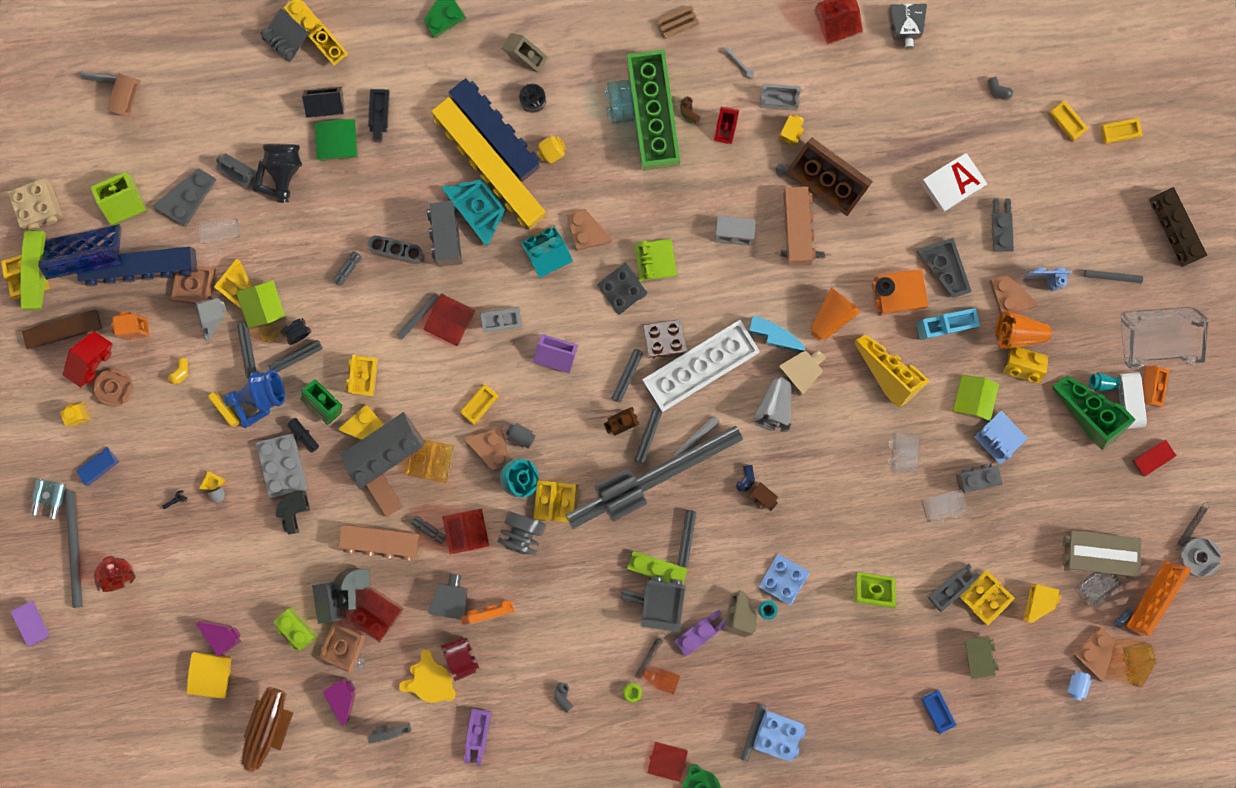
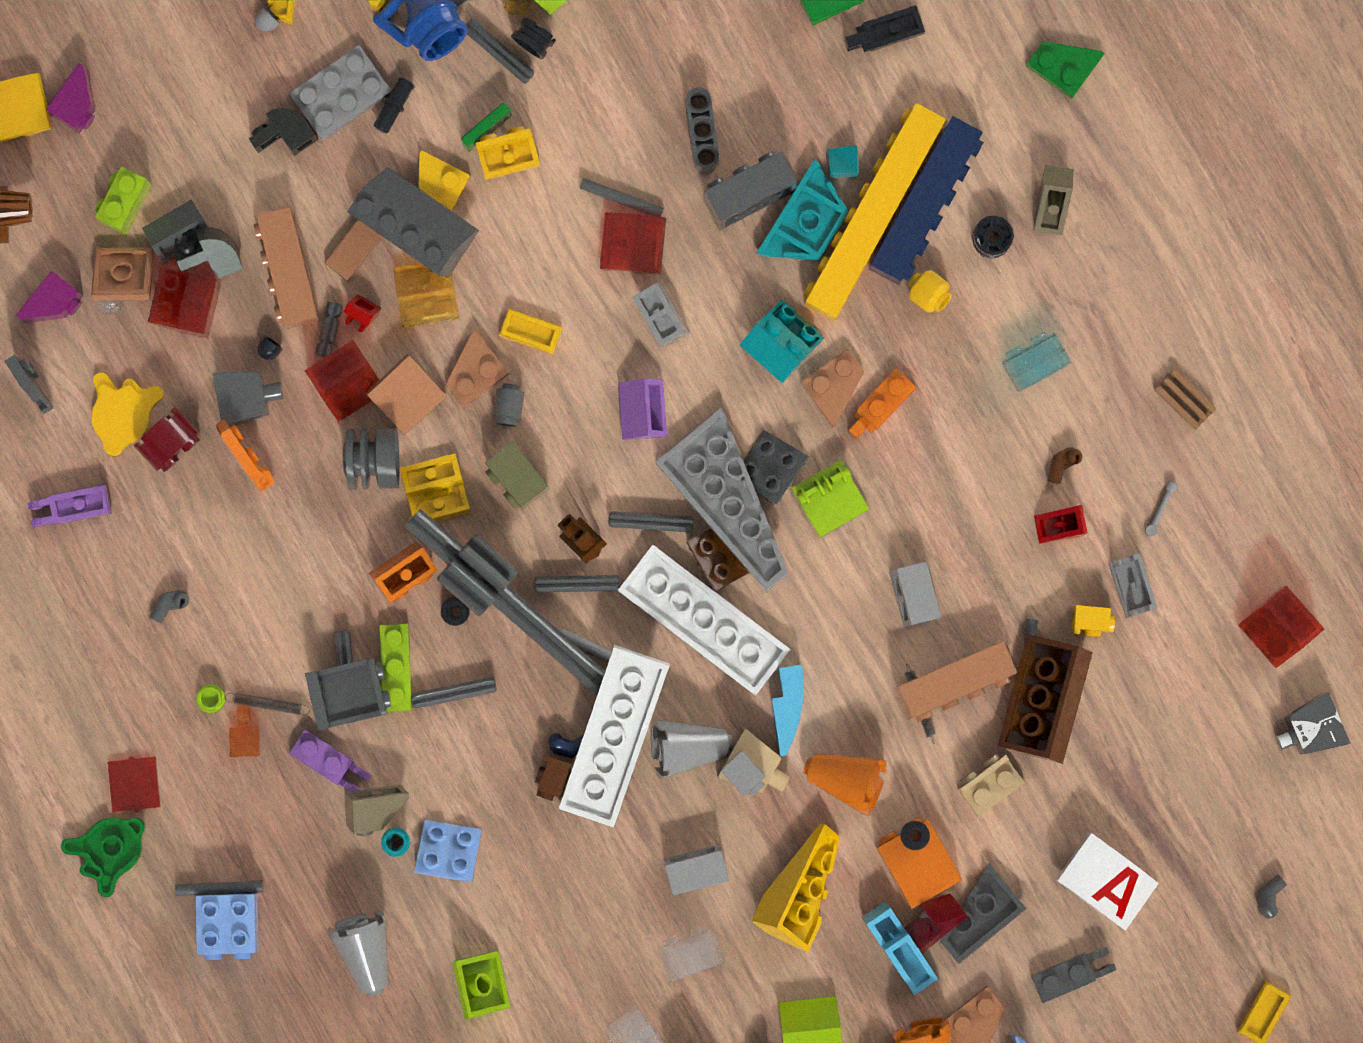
camera: 65 degrees right, 0 degrees up
(321, 402) = (448, 111): green brick -> none
(340, 382) = (486, 126): none -> green tile
(347, 268) = (650, 73): dark grey axle -> none
(425, 504) = (361, 310): none -> red tile
(426, 572) = (268, 348): none -> black hinge
(450, 171) = (843, 162): none -> teal slope
(488, 497) = (406, 394): none -> nougat tile
(519, 478) = (447, 426): teal cylinder -> none
(567, 447) = (516, 476): none -> olive brick
(600, 540) = (403, 572): none -> orange brick
(609, 205) = (882, 403): none -> orange hinge
(623, 324) = (717, 485): none -> light grey wing
(636, 524) = (445, 612): none -> black plate
(653, 110) = (1041, 412): bright green brick -> none
(753, 448) = (614, 736): none -> white plate
(808, 376) = (744, 775): none -> light grey brick
(826, 655) = (363, 950): none -> light grey cone
(853, 430) = (696, 869): none -> light grey hinge
(868, 230) = (990, 785): none -> tan bracket
(940, 295) = (936, 921): none -> dark red slope

